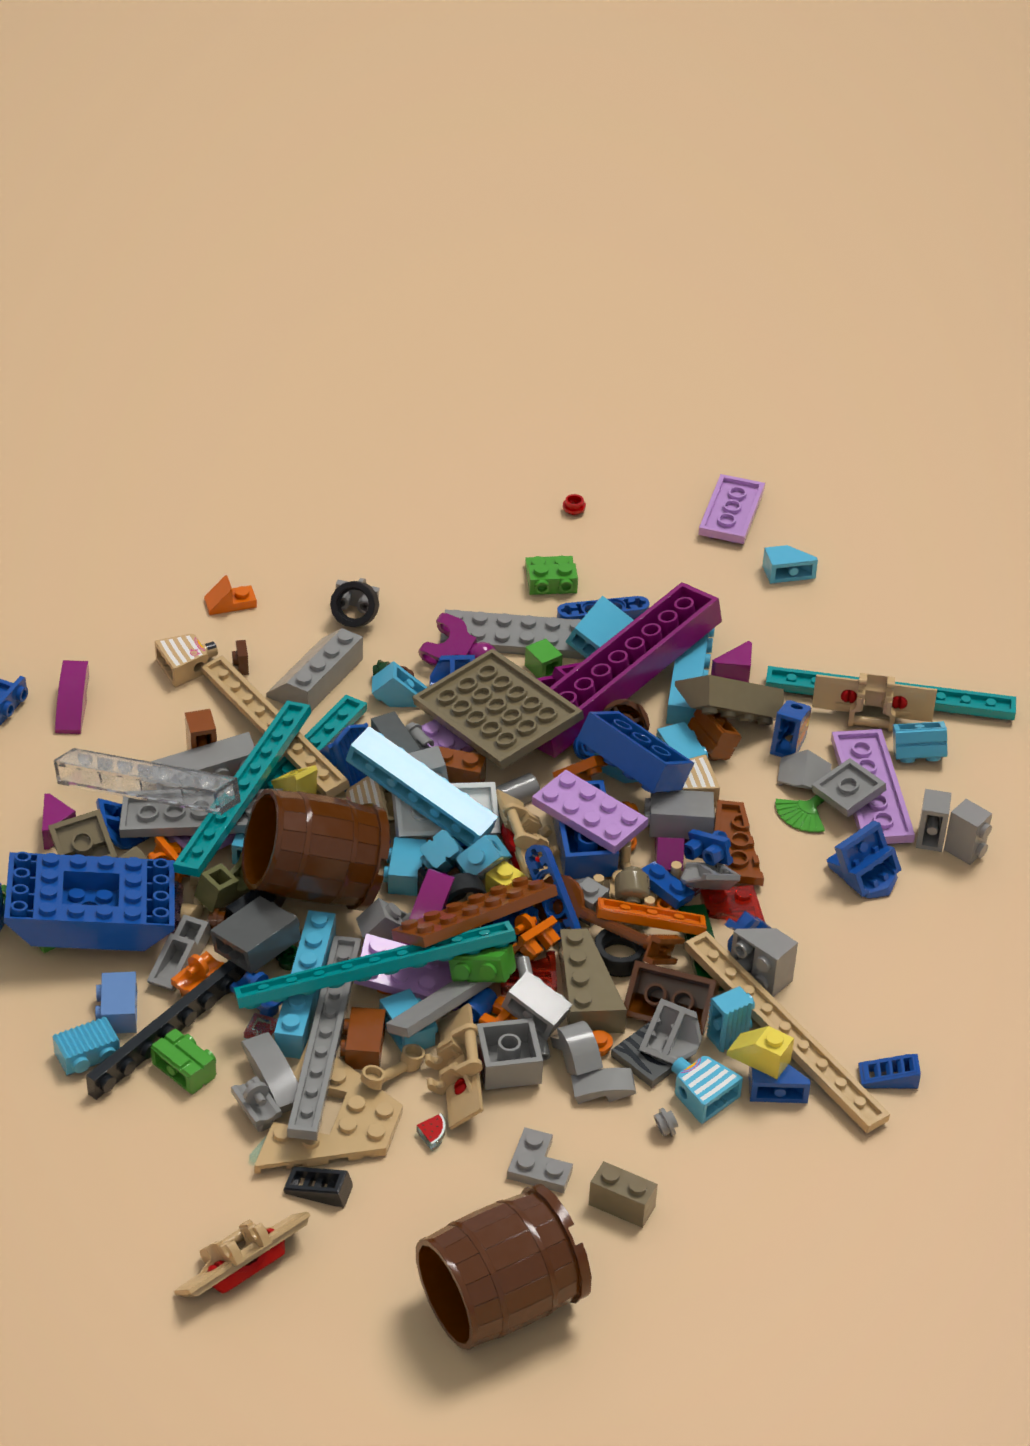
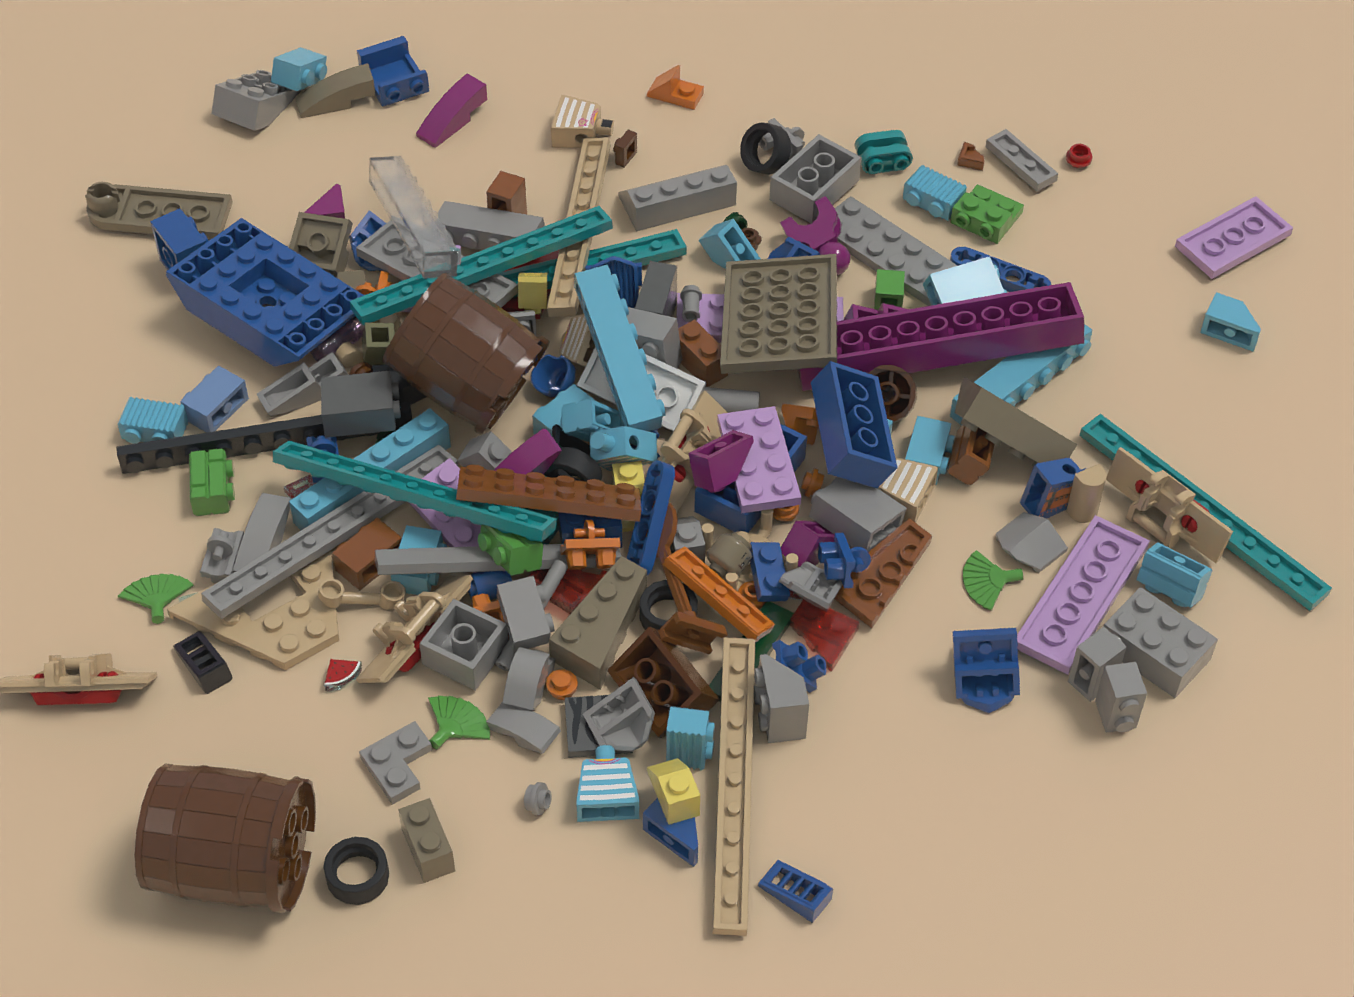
camera: 40 degrees right, 10 degrees up
(197, 970) = (294, 408): orange hips -> none
(224, 1163) = (156, 592): none -> bright green hand
(411, 608) = (812, 173): none -> light grey brick
(437, 567) = (883, 151): none -> teal brick
(498, 543) = (970, 157): none -> dark orange tile
(503, 577) = (933, 192): none -> medium azure brick
(538, 526) = (1021, 160): none -> light grey plate
(549, 1110) = (457, 719): none -> bright green hand
(574, 822) = (720, 460): none -> magenta slope
(604, 1229) = (352, 848): none -> black tyre
(734, 663) = (1070, 394): magenta slope -> none
(818, 719) = (1086, 493): none -> tan brick
(849, 787) = (1045, 580): light grey plate -> none
(959, 777) = (1161, 641): none -> light grey brick

